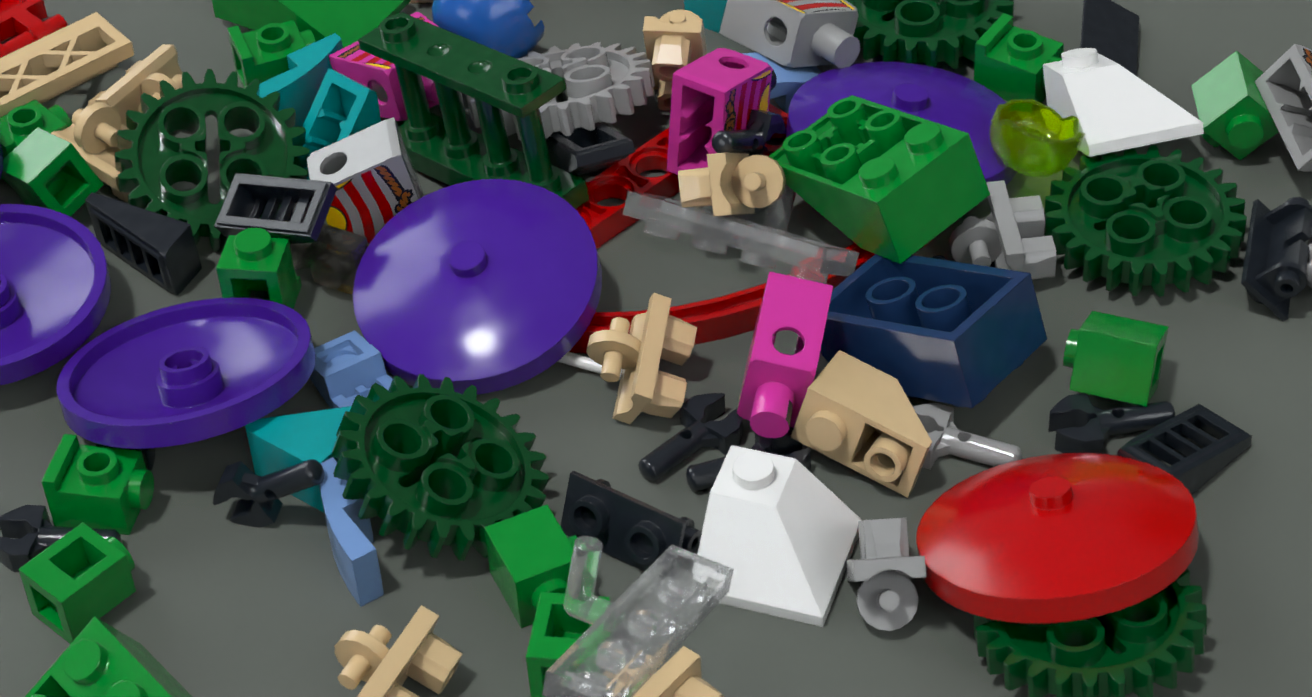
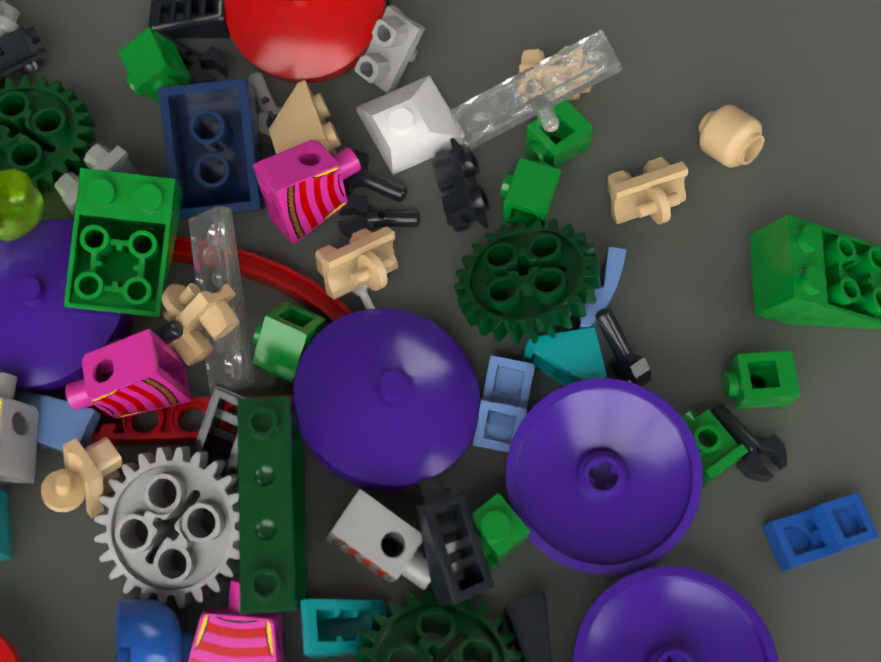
camera: 140 degrees left, 25 degrees up
(634, 252) = (284, 338): none -> green brick

